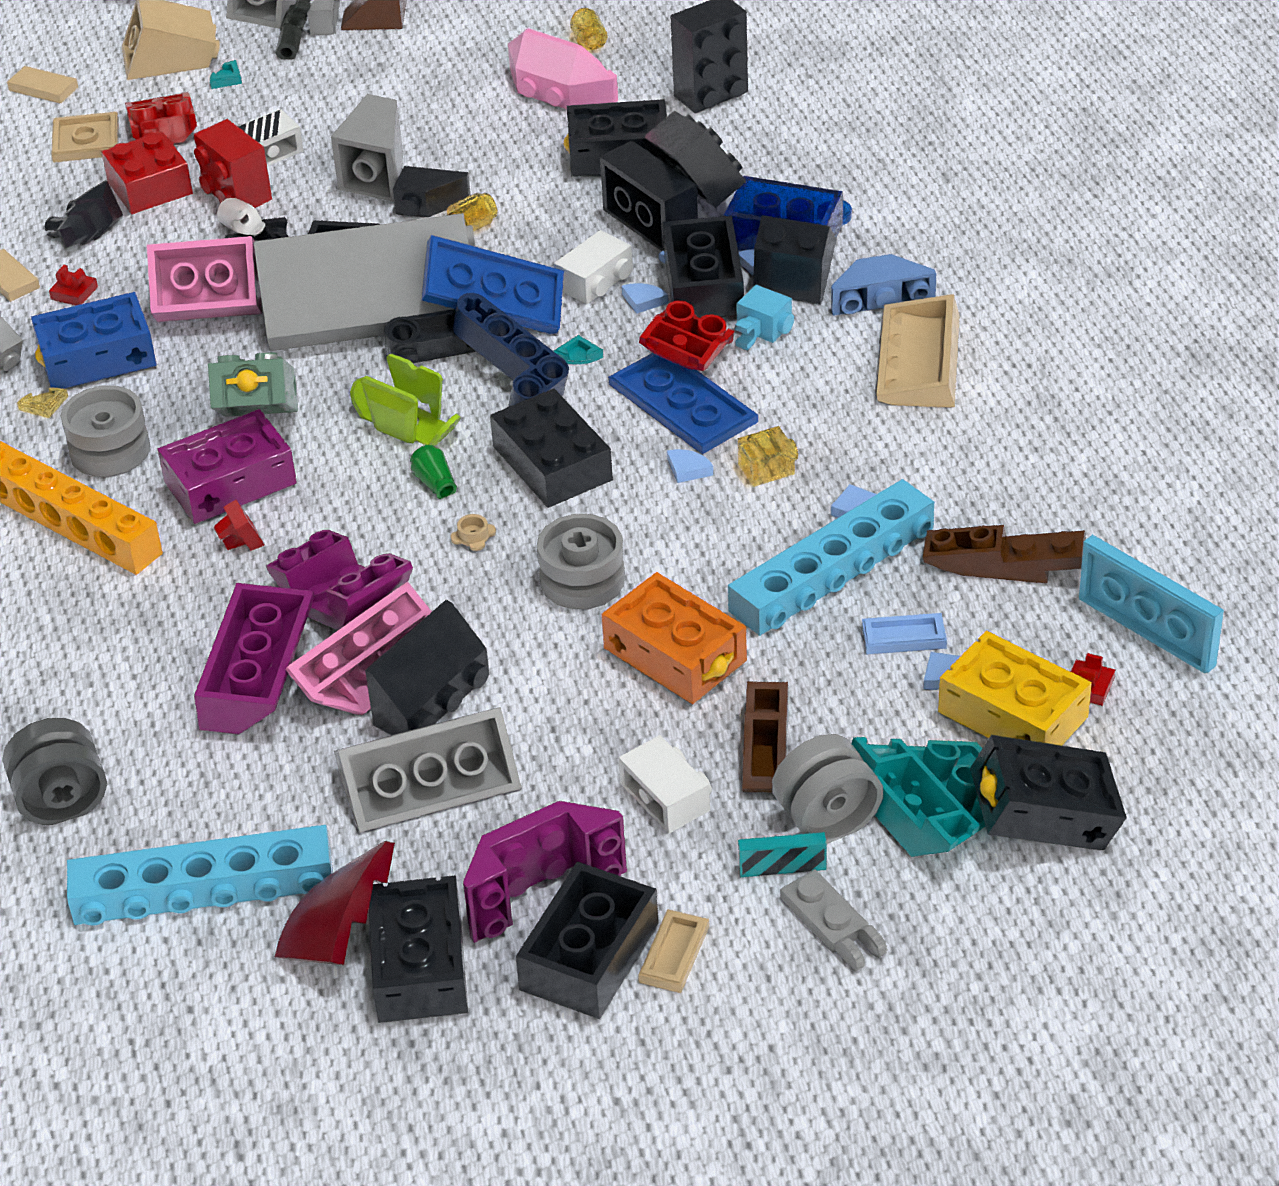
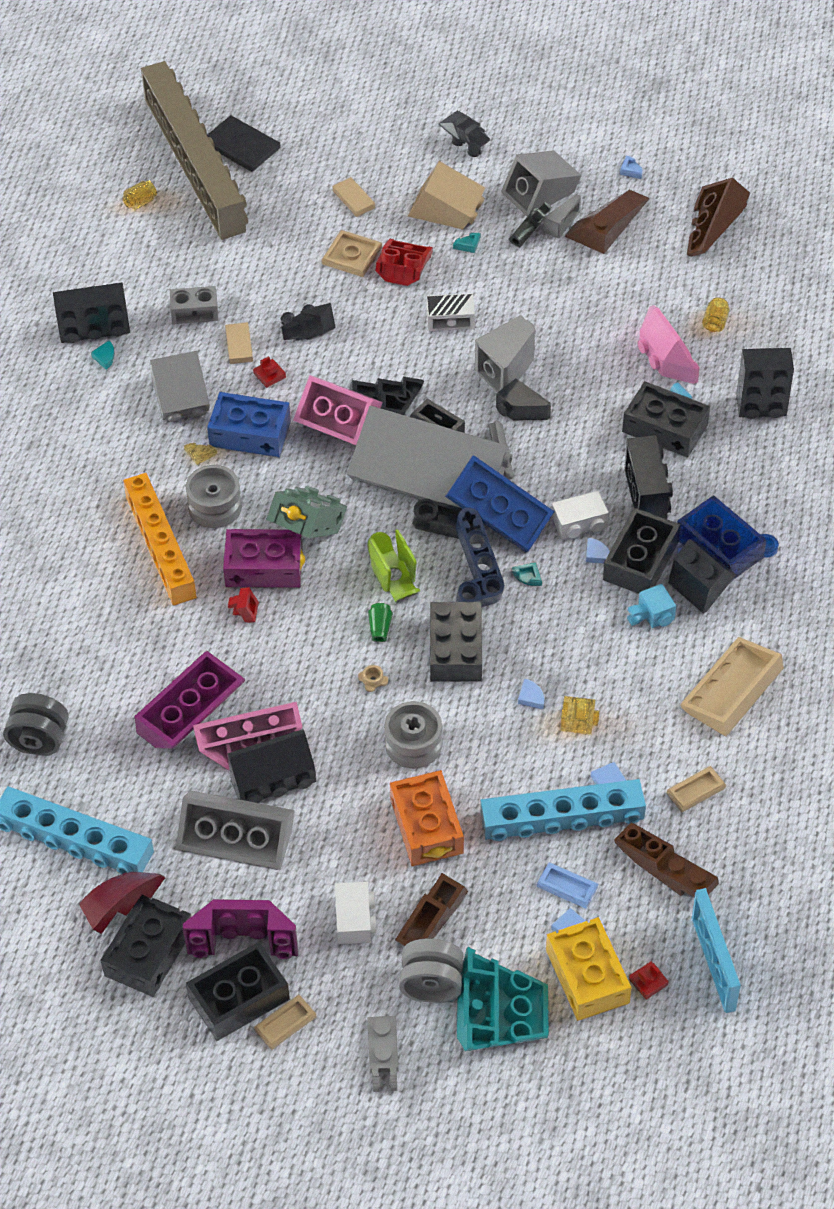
camera: 30 degrees right, 10 degrees up
(147, 172) = (364, 304): red brick -> none
(232, 164) = (411, 328): red brick -> none
(240, 217) = (394, 368): white piece -> none
(338, 581) = (268, 672): magenta slope -> none
(477, 210) = (536, 433): clear yellow brick -> none
(684, 401) = (564, 644): blue tile -> none
(686, 338) = (591, 602): red slope -> none
(697, 156) = (689, 467): black brick -> none
(782, 854) = (382, 996): teal tile -> none
(881, 281) = (745, 620): medium blue slope -> none
(968, 470) = (696, 789): none -> tan tile
(1047, 793) = (550, 1045): black piece -> none

